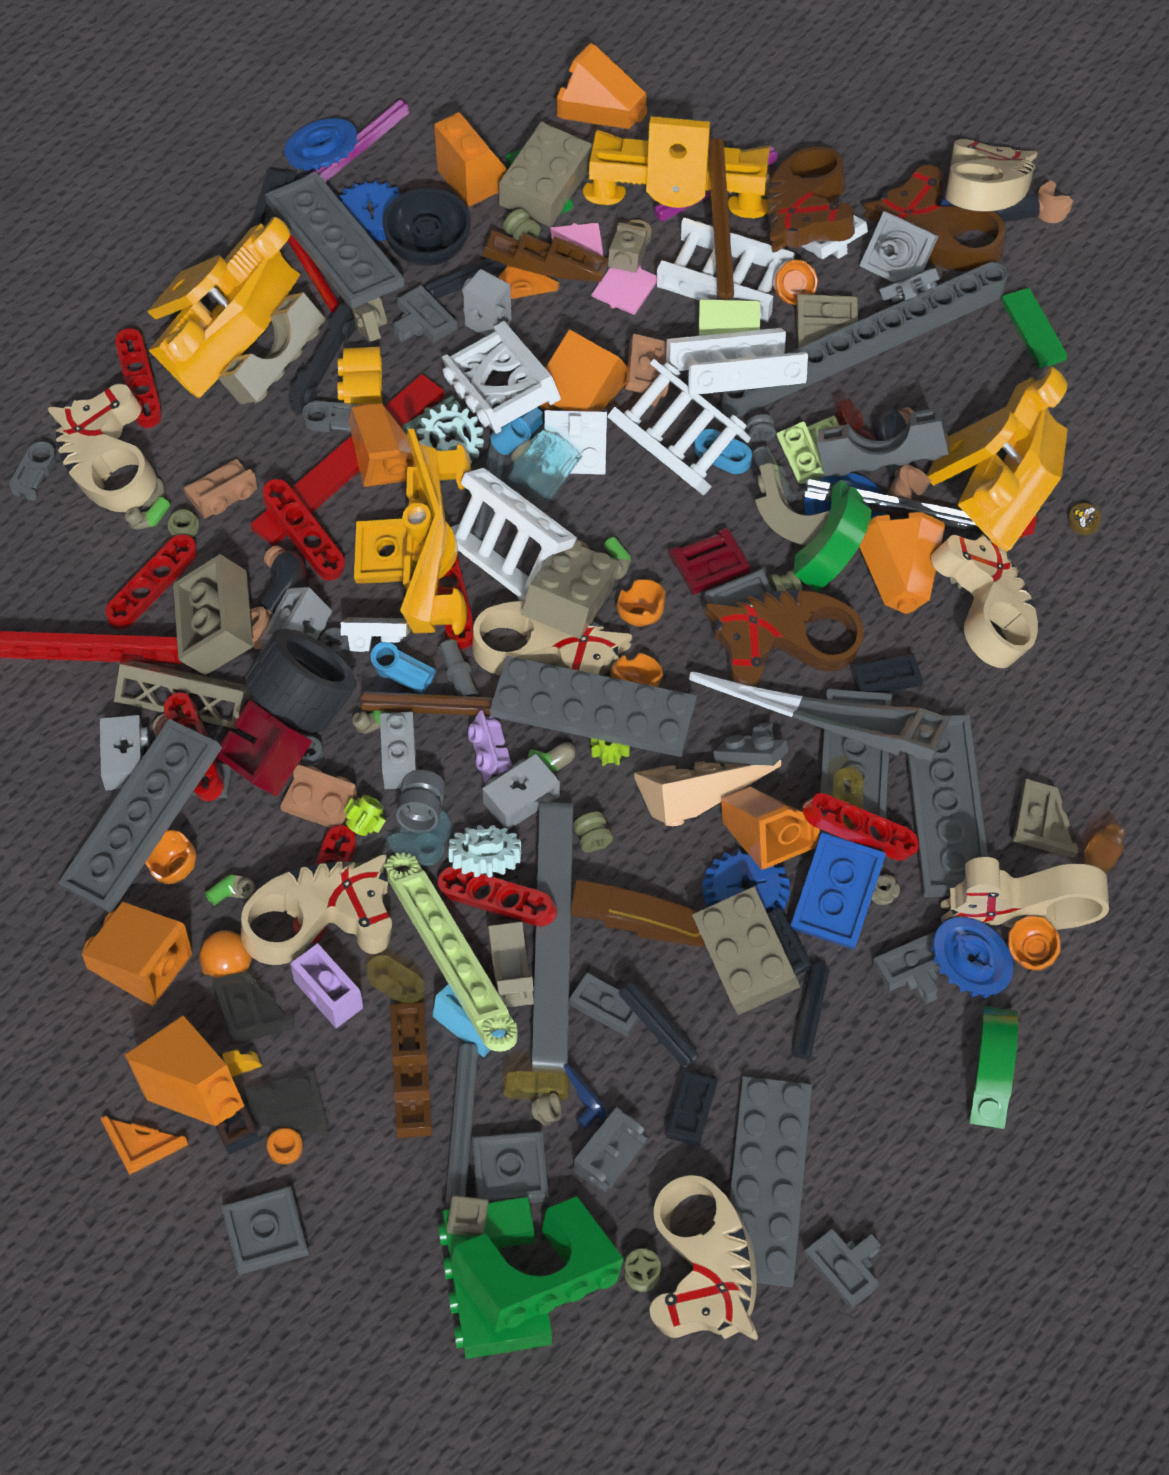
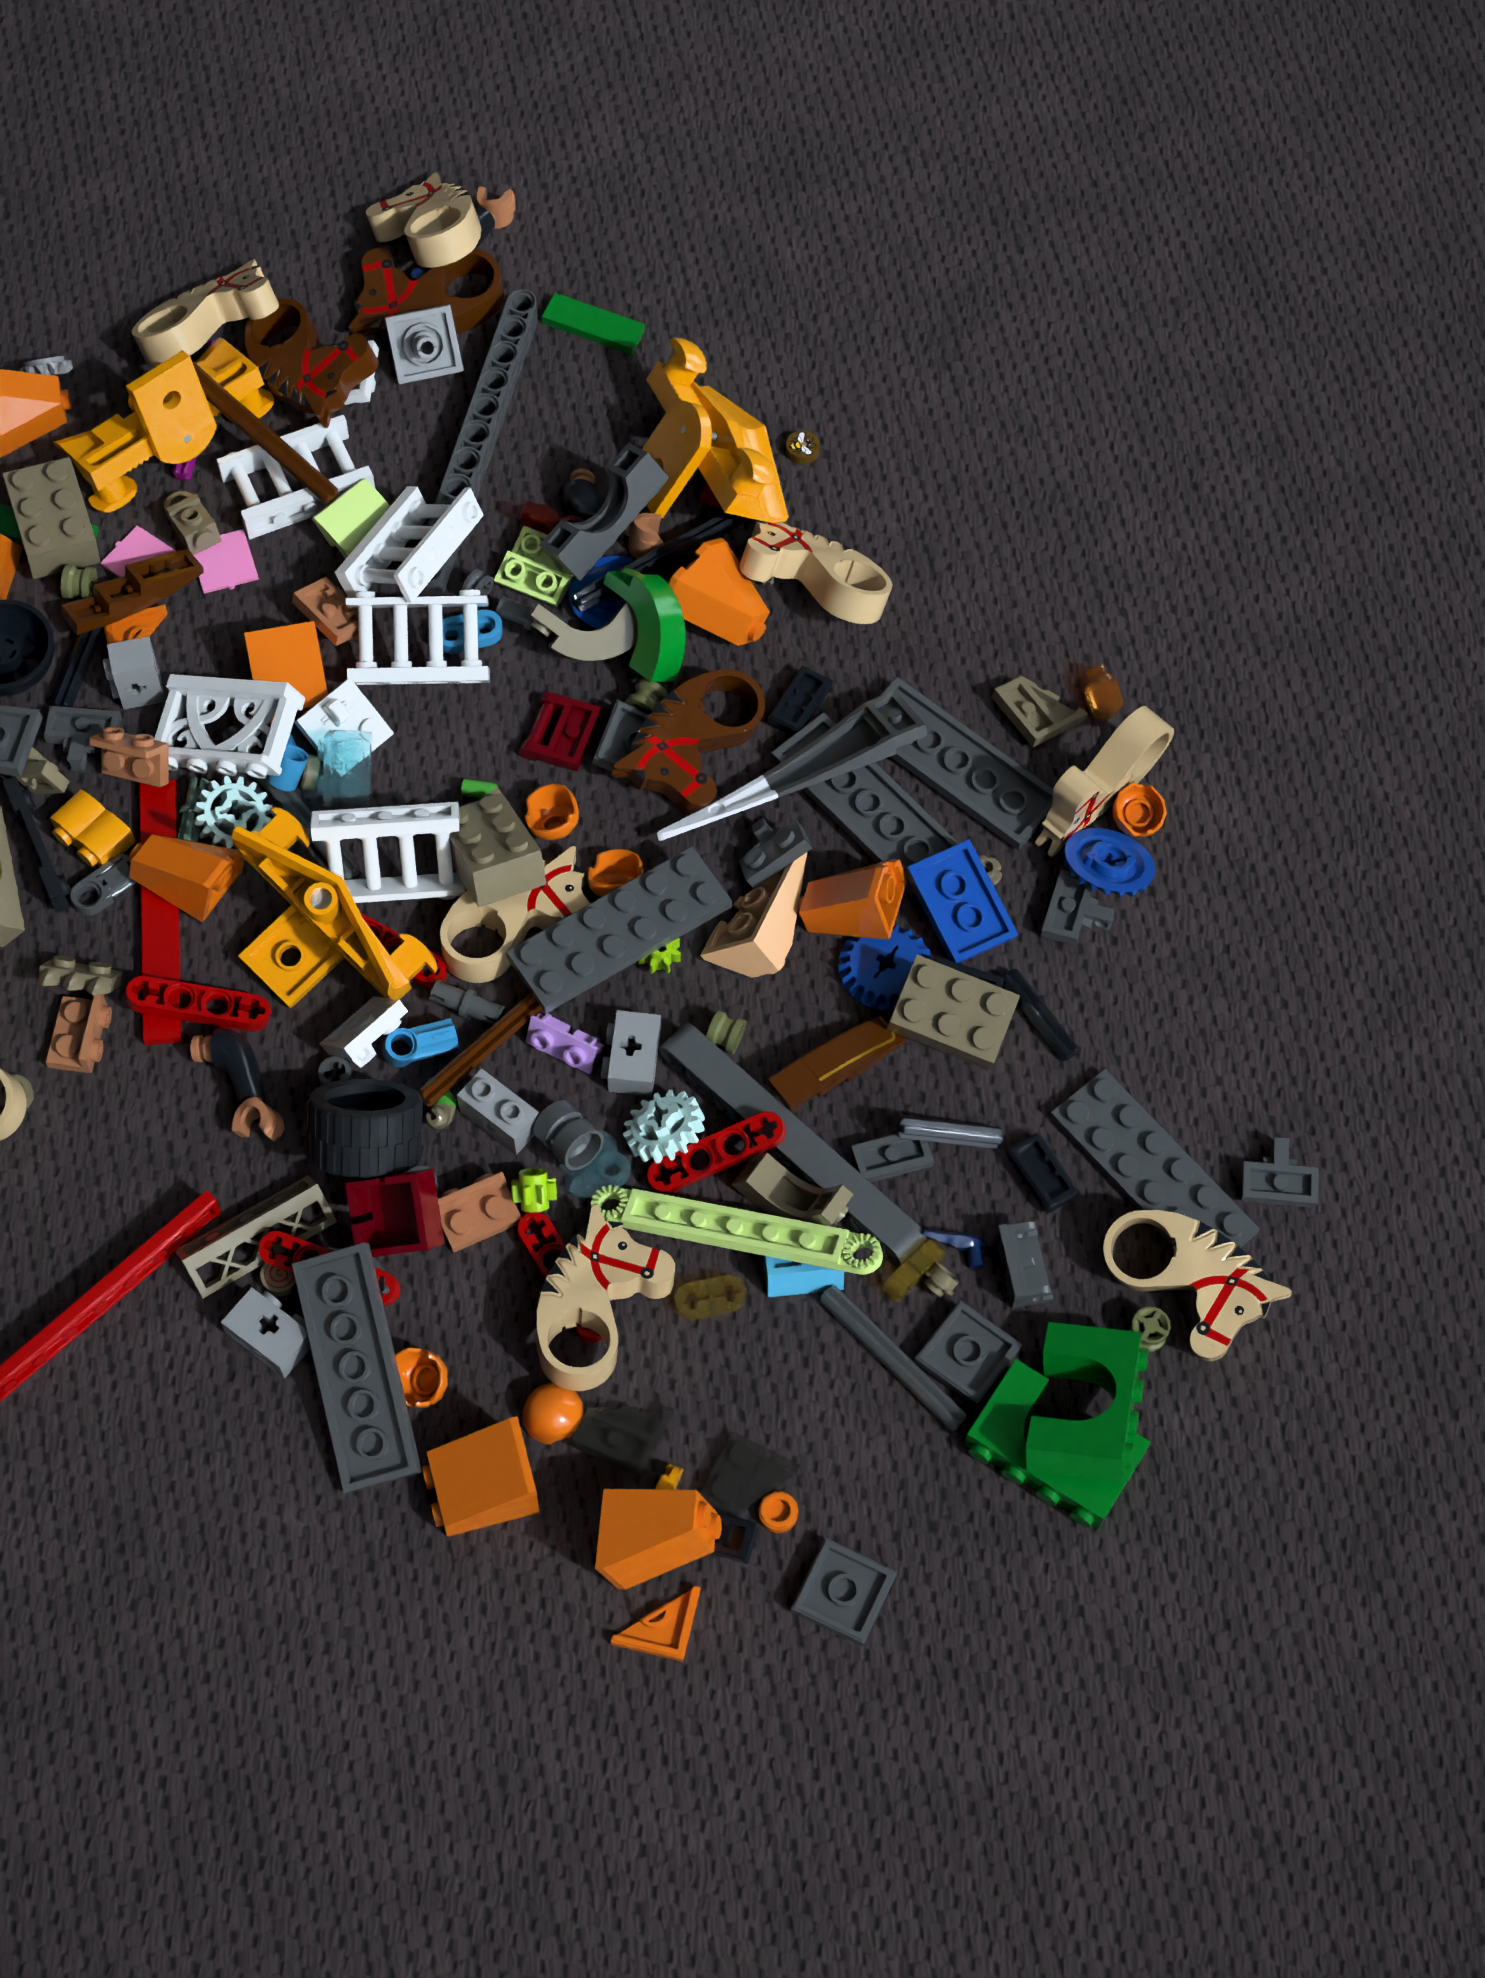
camera: 50 degrees left, 5 degrees up
(141, 520) = (44, 1117): arm -> none
(155, 584) = (115, 1168): red beam -> none
(183, 517) = (80, 1085): olive plate -> none
(212, 615) = (215, 1144): dark tan brick -> none
(230, 886) = (490, 1352): arm -> none
(253, 450) = (95, 977): none -> dark tan plate
(299, 611) = (287, 1080): light grey brick -> none
(327, 985) = (669, 1353): lavender brick -> none
(410, 1070) = (805, 1354): reddish brown slope -> none
(429, 351) = (132, 756): none -> nougat bracket
(467, 1216) = (993, 1418): dark tan tile -> none
(557, 757) = (627, 1000): dark tan arm -> none
(649, 84) = (48, 366): none -> light grey gear
(769, 120) = (195, 315): none -> tan animal
(793, 279) = (367, 440): orange hair -> none
(823, 315) = (422, 452): dark tan wing -> none
(855, 797) = (891, 821): clear yellow beam -> none
(861, 822) = (957, 824): red beam -> none
(908, 287) = (467, 364): hinge -> none
(994, 1067) = (1220, 921): green arch -> none

